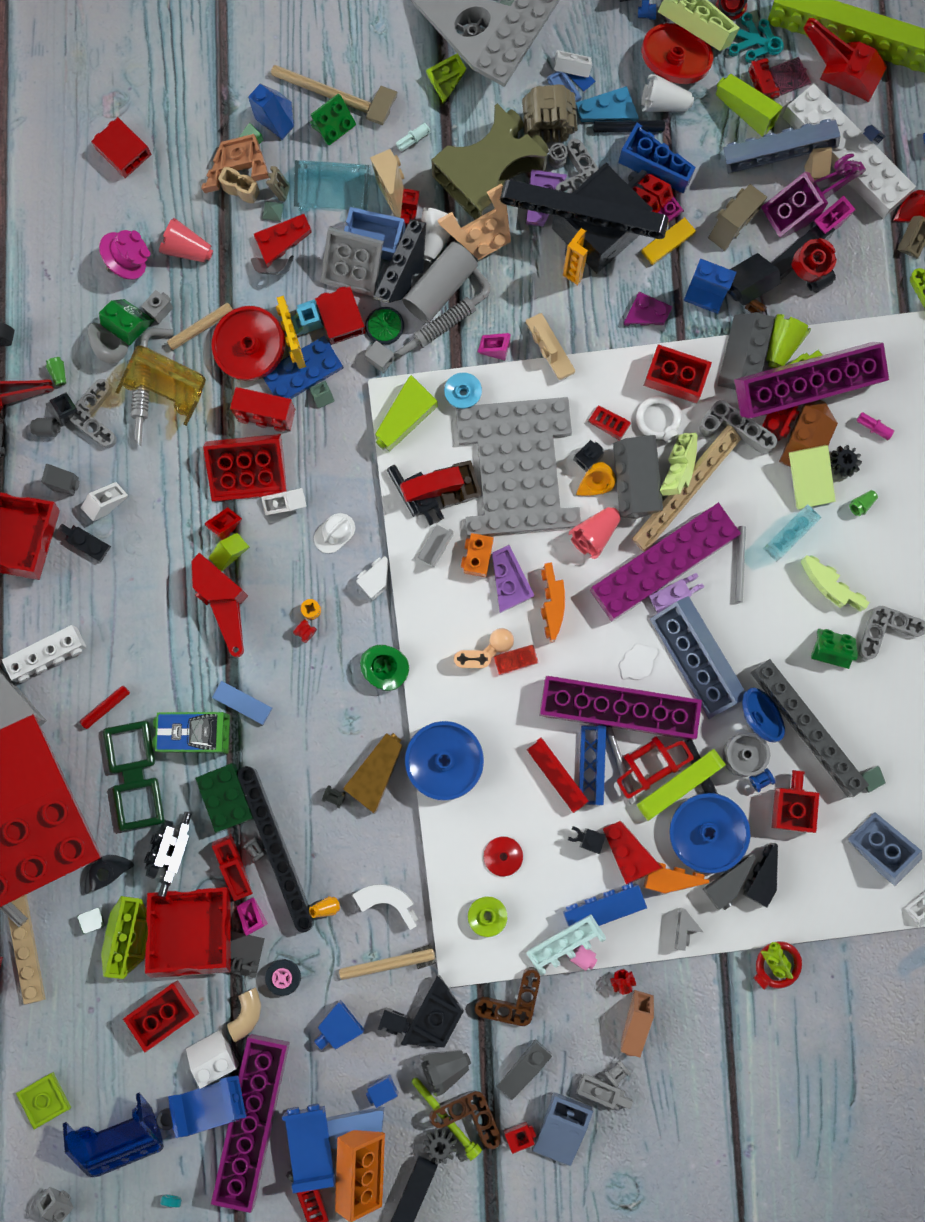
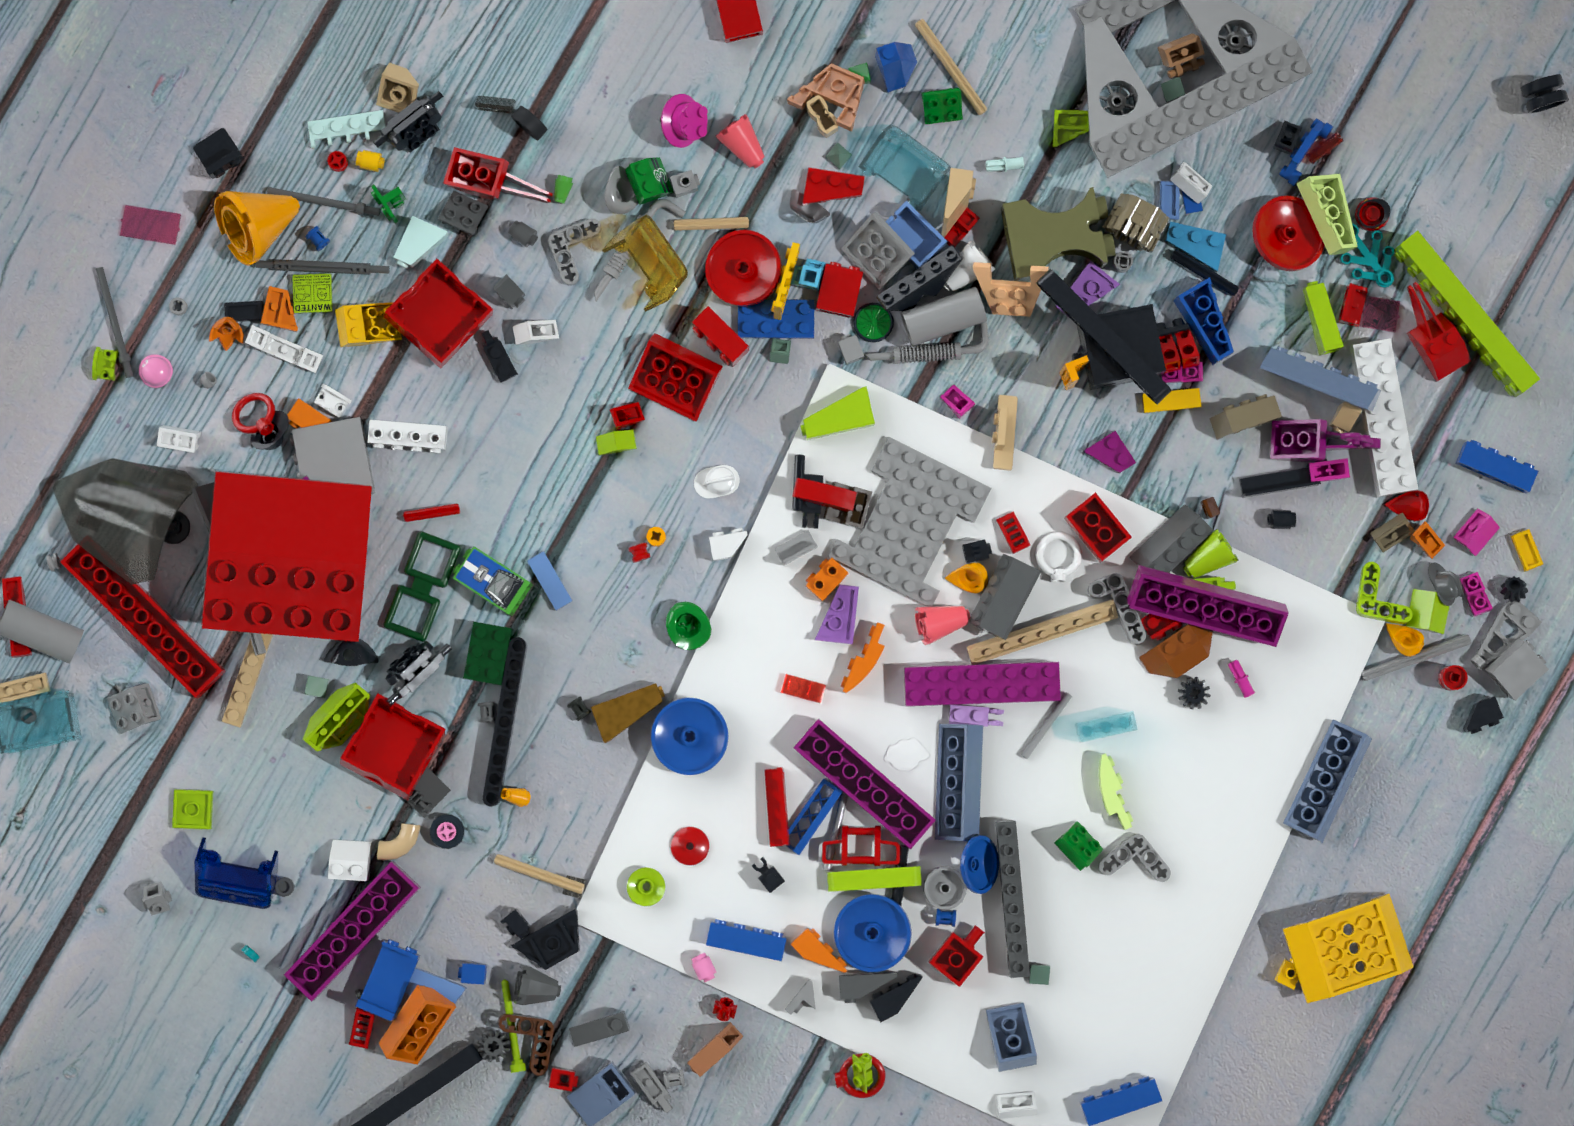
camera: 30 degrees right, 5 degrees up
(64, 407) = (549, 225): black slope -> none
(161, 1016) = (329, 800): red brick -> none
(207, 1107) = (325, 897): blue panel -> none
(224, 599) = (588, 482): red slope -> none
(232, 867) = (459, 715): red slope -> none
(251, 916) = (451, 765): dark pink slope -> none
(278, 187) = (854, 136): dark tan tile -> none
(284, 501) = (689, 428): white slope -> none
(338, 1027) = (468, 900): blue torso -> none
(381, 105) = (995, 116): dark tan slope -> none
(387, 894) = (575, 817): white arch -> none
(463, 382) = (905, 417): medium azure dish -> none
(500, 641) = (799, 665): light nougat beam -> none
(520, 1006) = (628, 976): reddish brown beam -> none
(564, 943) = (695, 946): light aqua hinge -> none
(584, 172) = (1137, 291): light grey beam -> none
(629, 853) = (795, 909): red wing -> none
(665, 96) = (1252, 267): white cone -> none
(682, 464) = (1052, 607): yellowish green slope -> none
(709, 286) = (1173, 468): blue panel -> none
(753, 279) = (1217, 482): black brick -> none
(811, 269) = (1289, 507): red brick -> none
(812, 476) = (1155, 689): yellowish green tile -> none
(861, 504) = (1184, 739): bright green cone -> none
(874, 134) = (1412, 419): dark blue piece -> none

